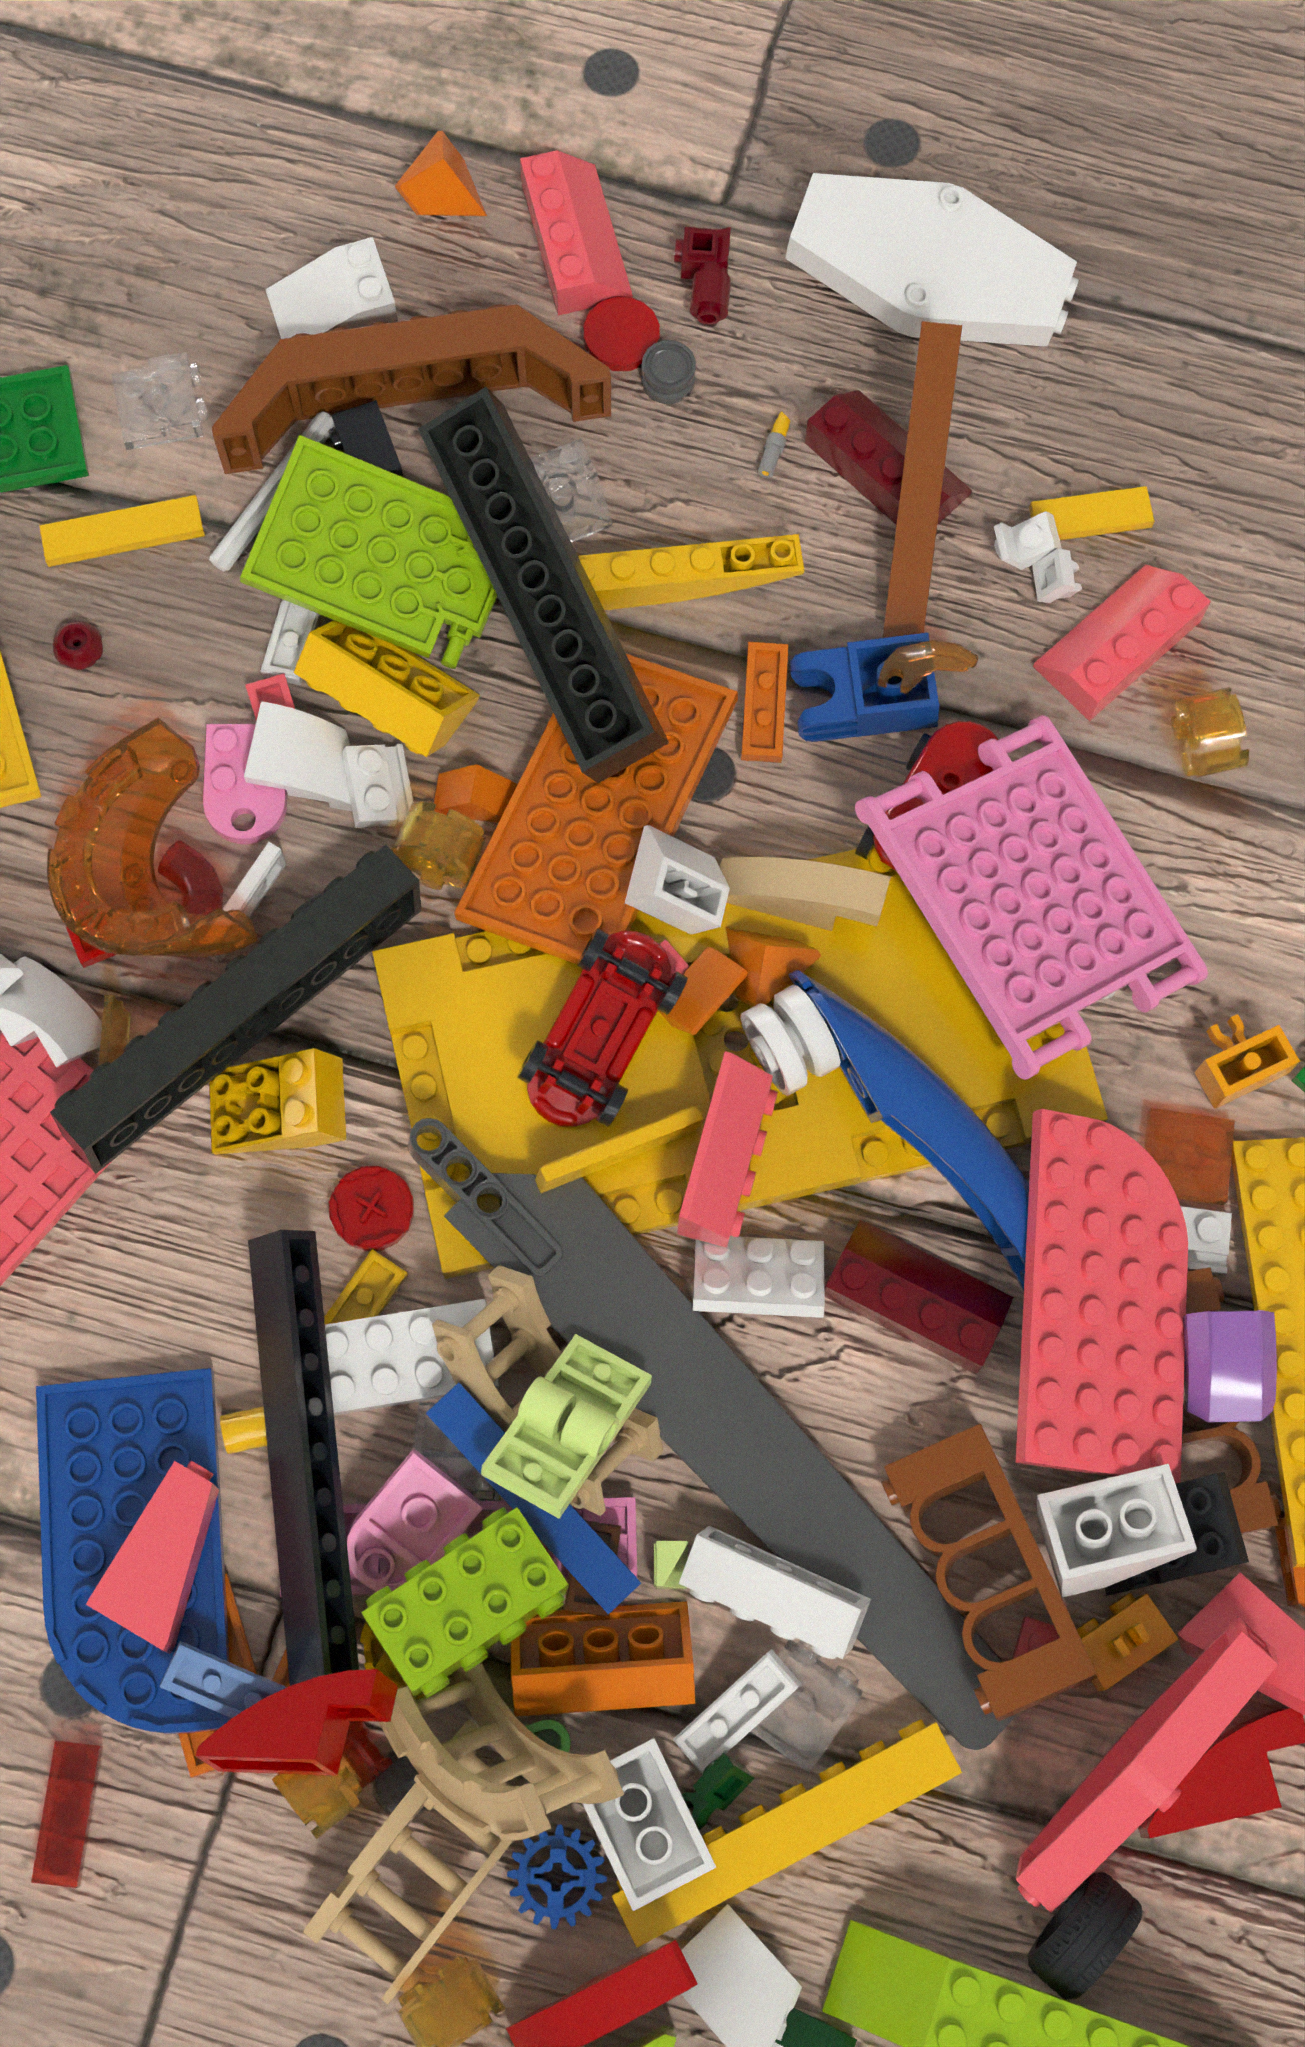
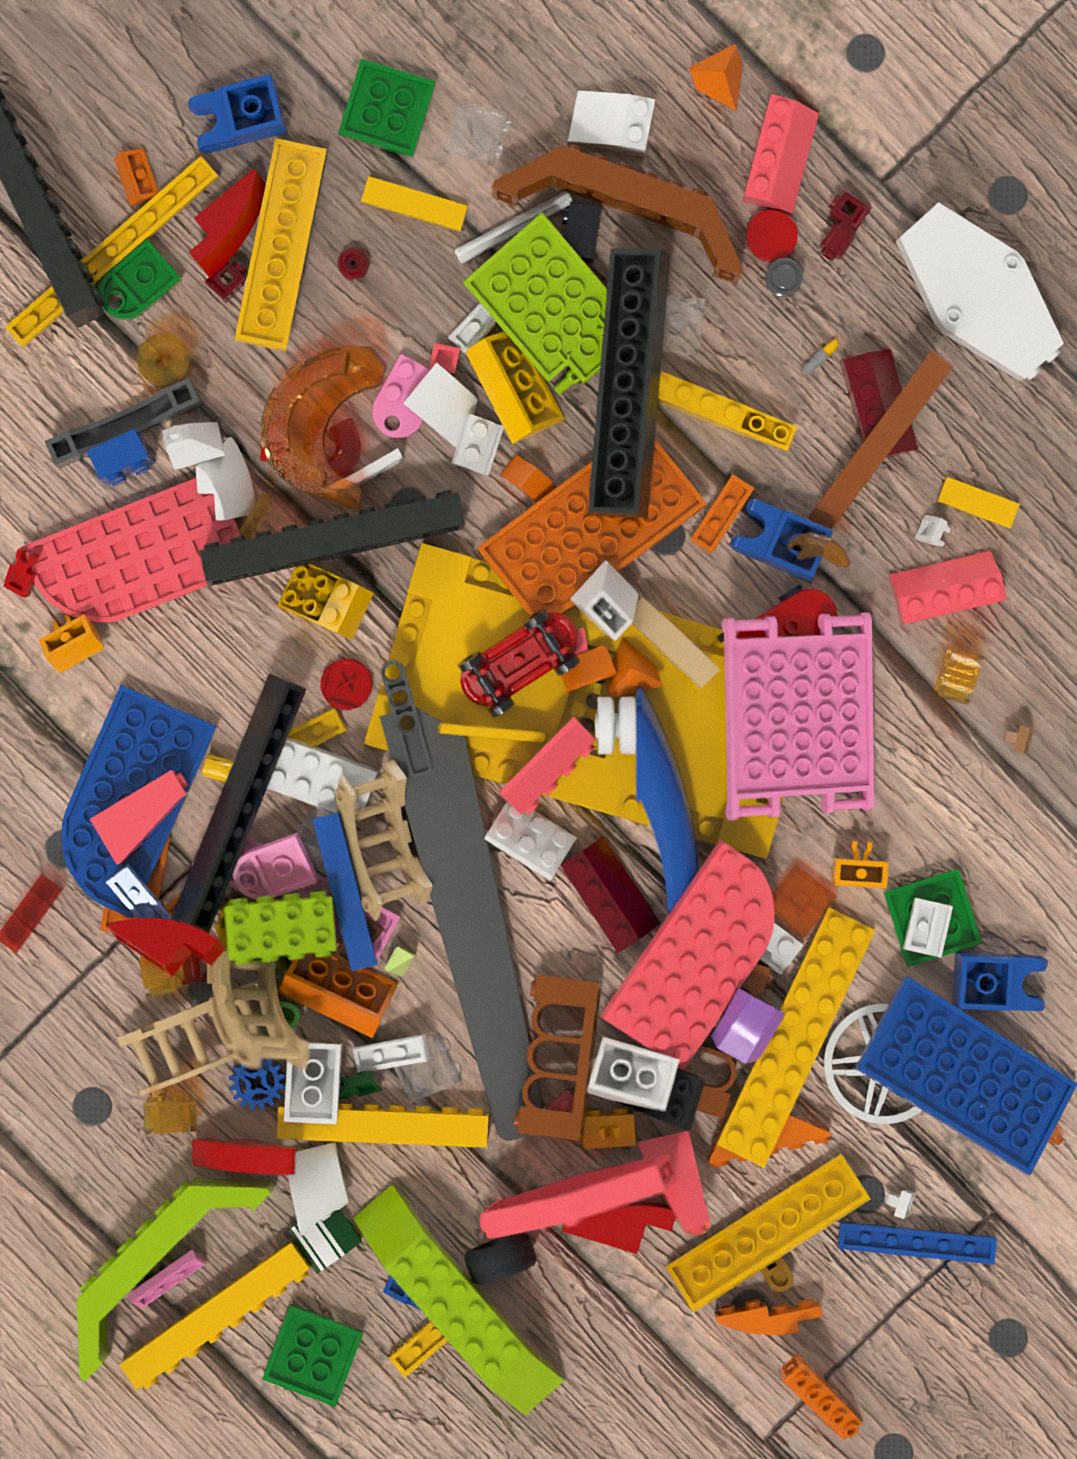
camera: 30 degrees right, 15 degrees up
(439, 845) = (489, 503): clear yellow brick -> none
(566, 1425) = (381, 867): yellowish green plate -> none
(774, 1592) = (443, 1006): white brick -> none
(1027, 541) = (928, 500): white bracket -> none

